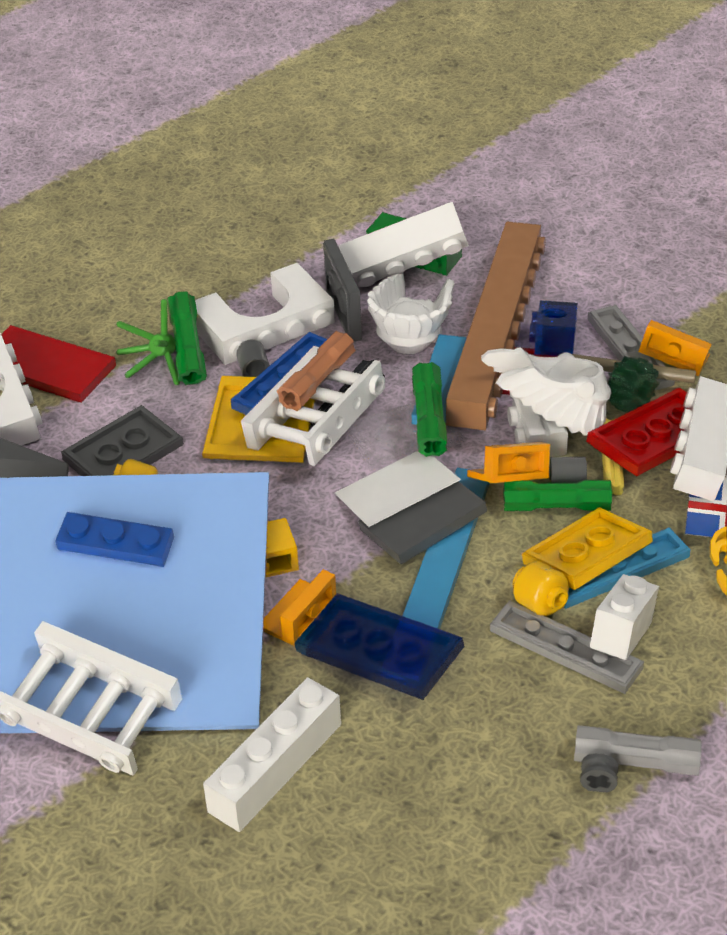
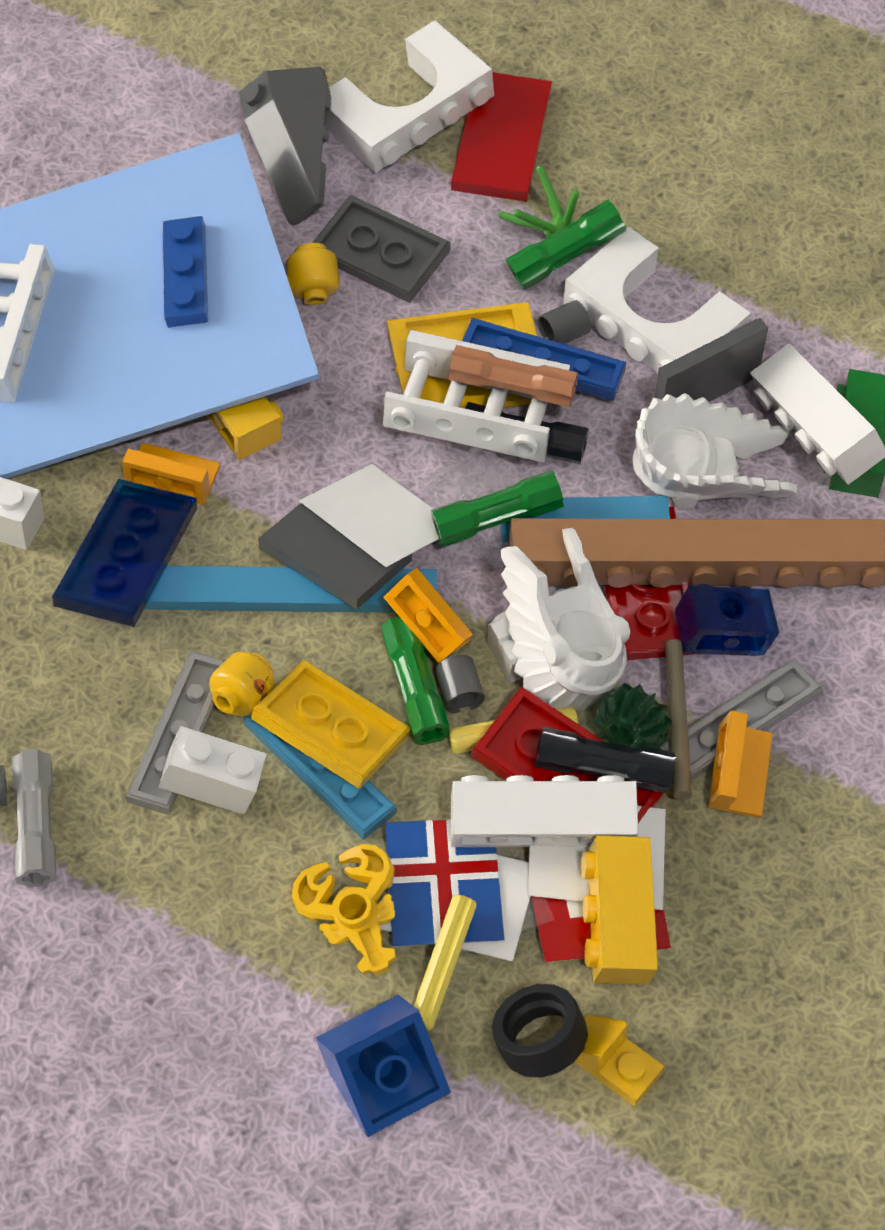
camera: 70 degrees right, 15 degrees up
(657, 413) = (571, 753): none -> black axle

